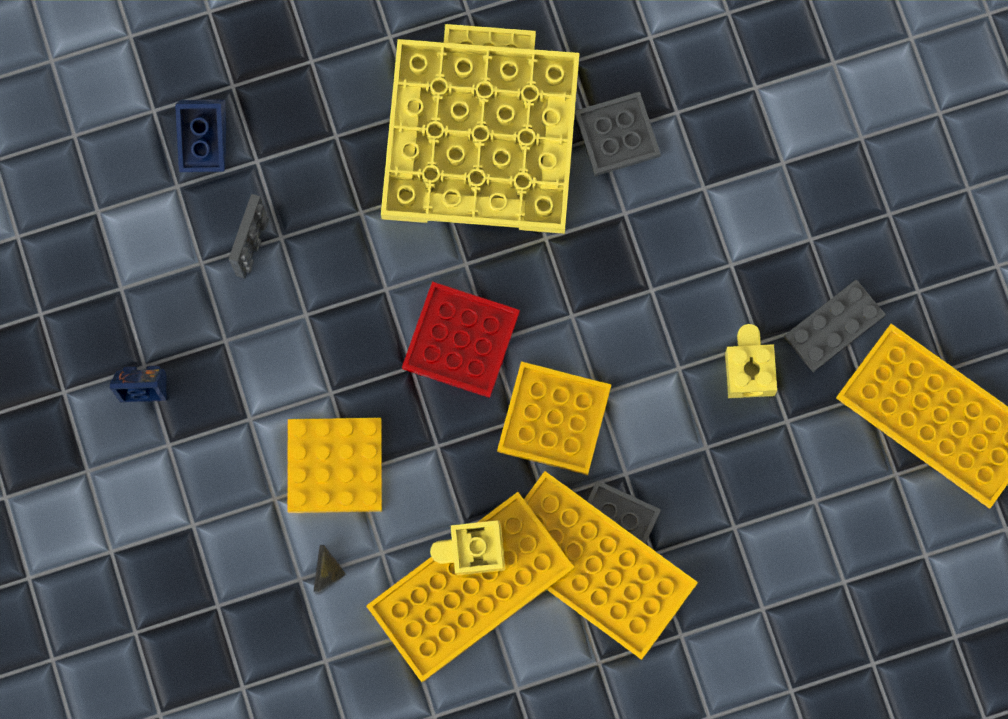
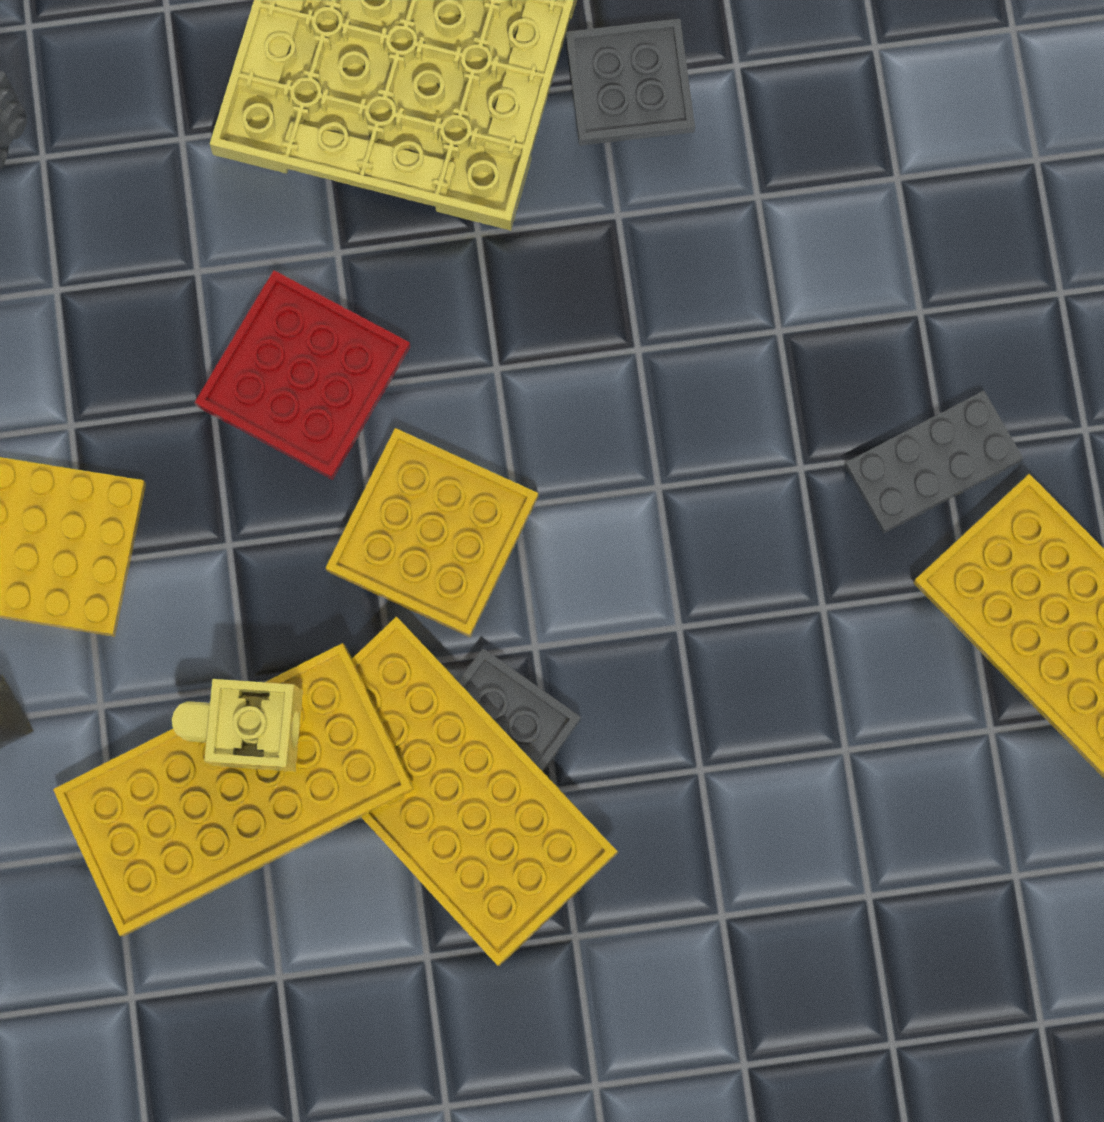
camera: 10 degrees right, 0 degrees up
(750, 366) = (778, 503): light yellow brick -> none

